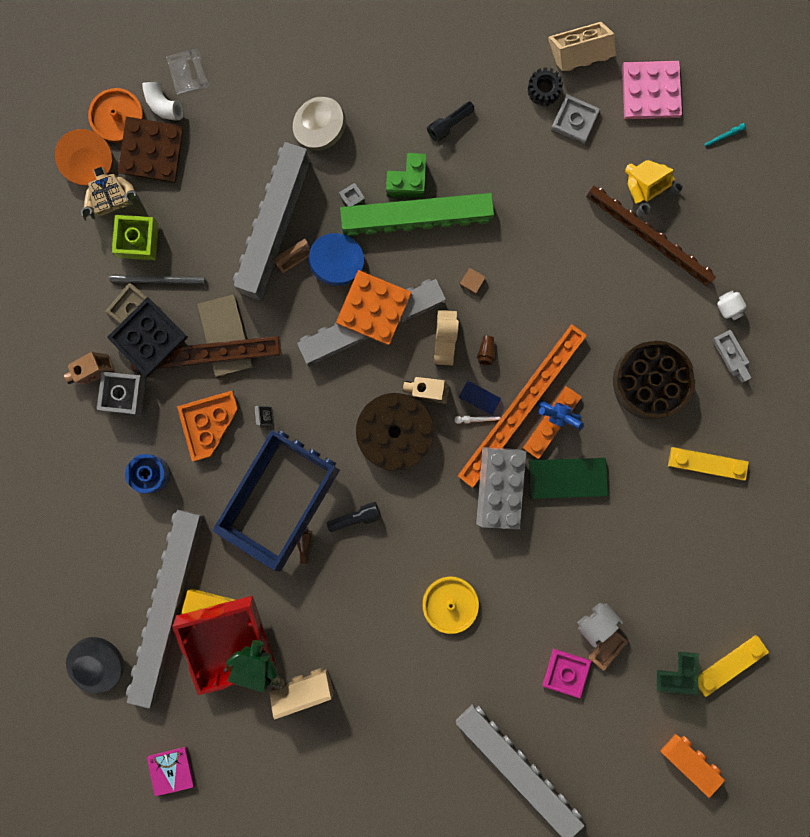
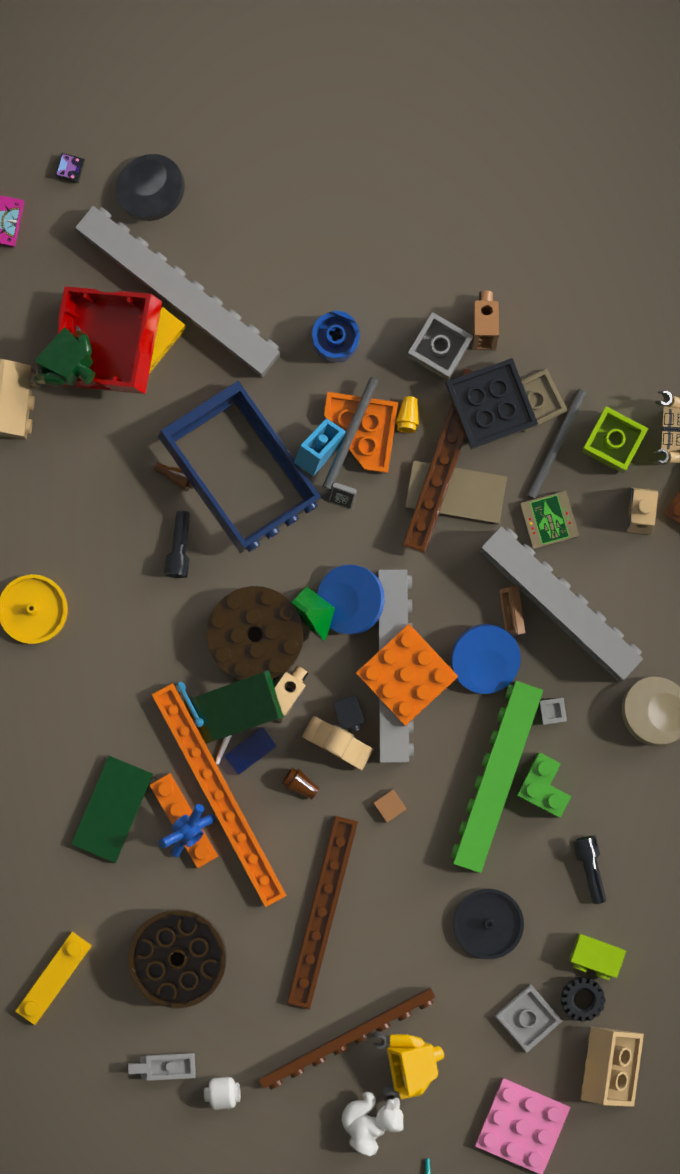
camera: 110 degrees right, 0 degrees up
(107, 733) = (70, 167): none -> tile
(178, 196) = (642, 510): none -> tan torso
(184, 394) = (407, 419): none -> yellow cone
(214, 430) = (350, 433): none -> dark grey piece
(215, 260) = (549, 520): none -> tile
(234, 447) = (319, 447): none -> dark azure brick
(337, 374) = (356, 598): none -> blue piece
(358, 395) = (314, 612): none -> green slope
(420, 338) = (349, 714): none -> black brick
(453, 418) = (238, 707): none -> dark green tile
(457, 469) = (181, 688): none -> dark azure hinge
(501, 488) = (136, 725): light grey brick -> none
(510, 89) = (597, 956): none -> lime brick
(523, 175) = (488, 923): none -> black piece
(570, 294) = (322, 912): none -> reddish brown tile
(707, 192) = (365, 1128): none -> white animal

